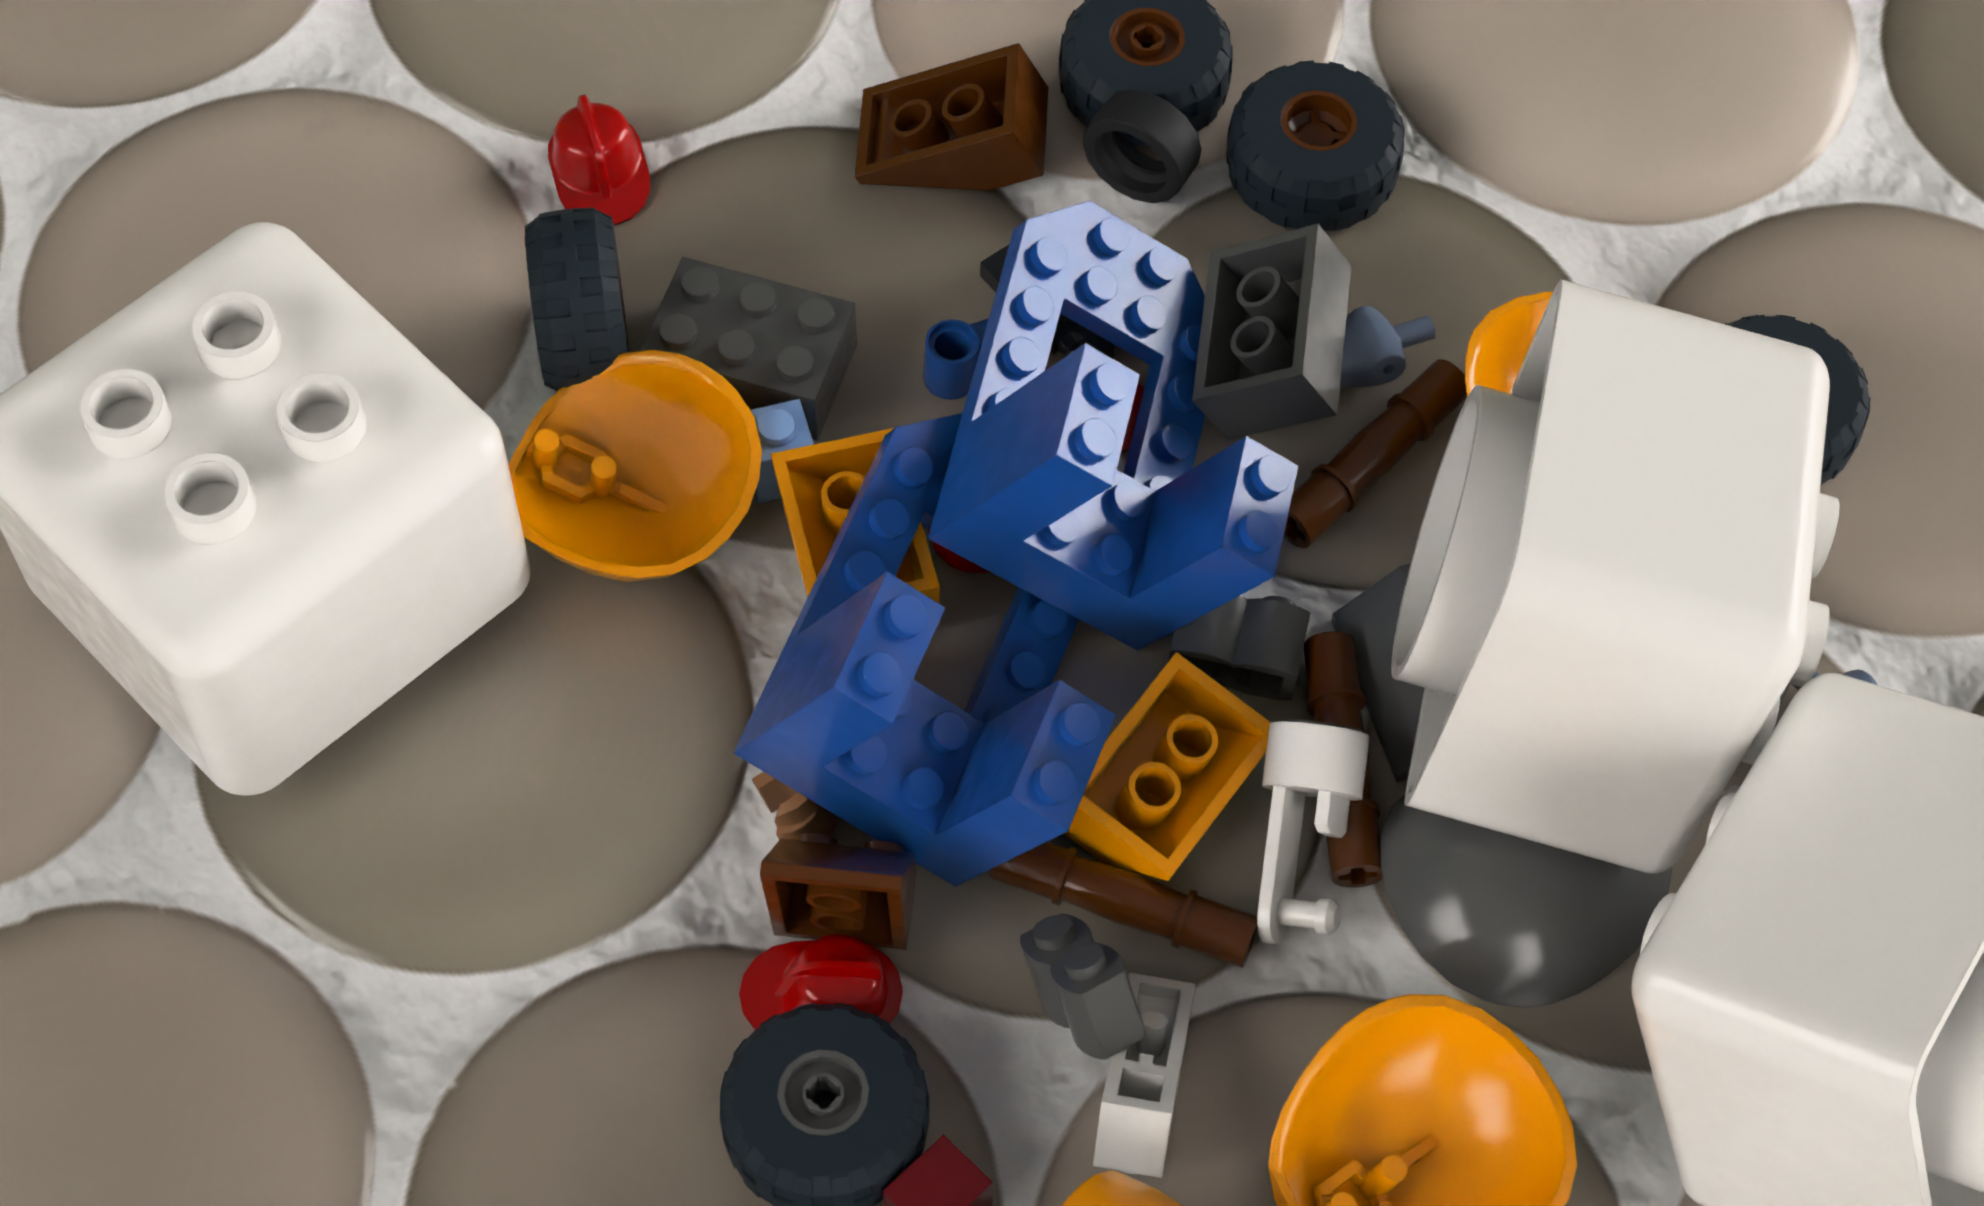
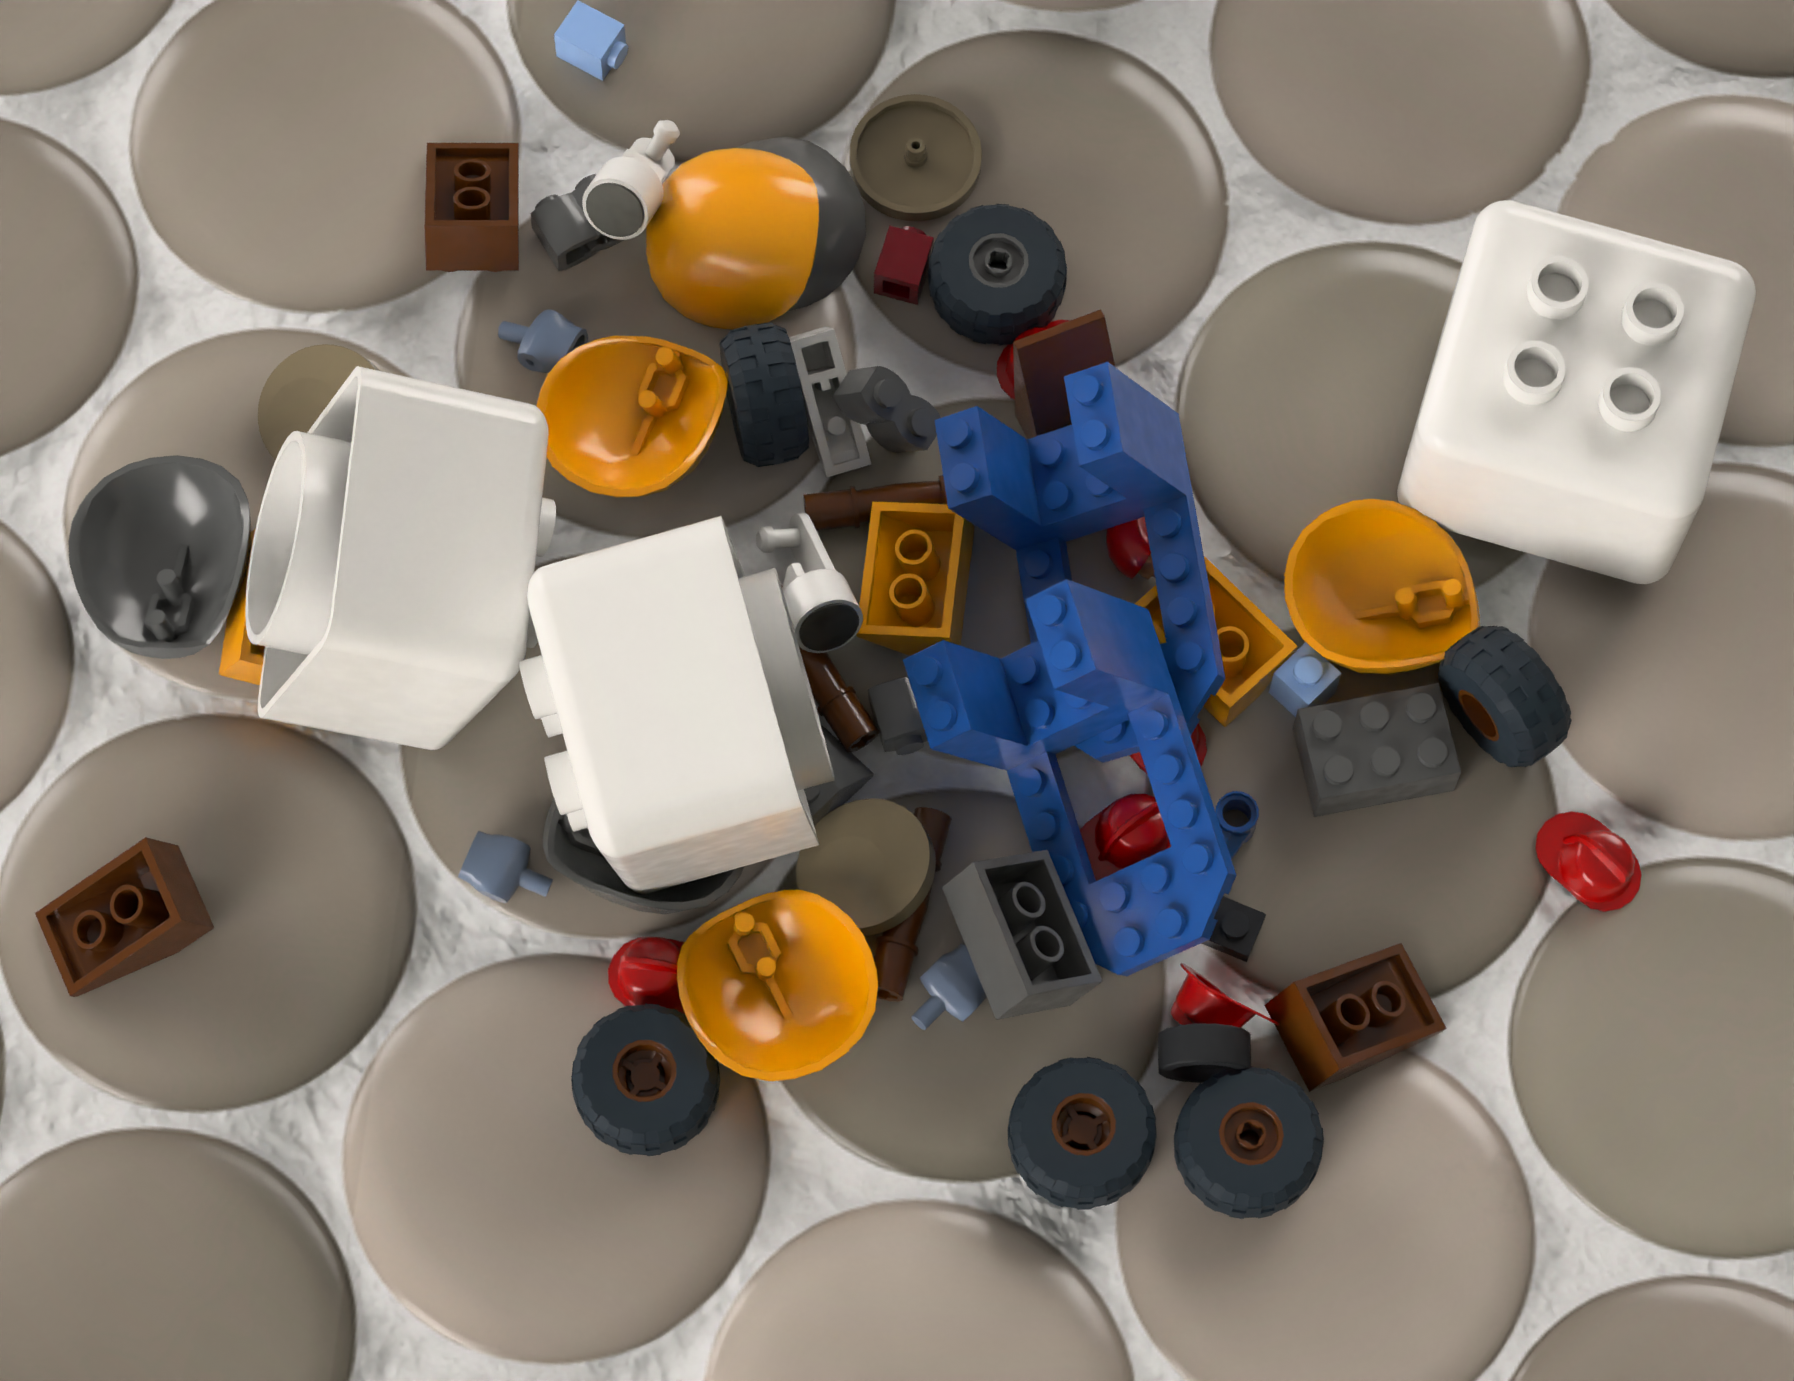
camera: 150 degrees right, 10 degrees up
(1084, 174) = (1206, 1004): none -> red piece
(1237, 1077) = (764, 394): none -> black wheel
(1378, 487) = (870, 863): none -> dark tan piece

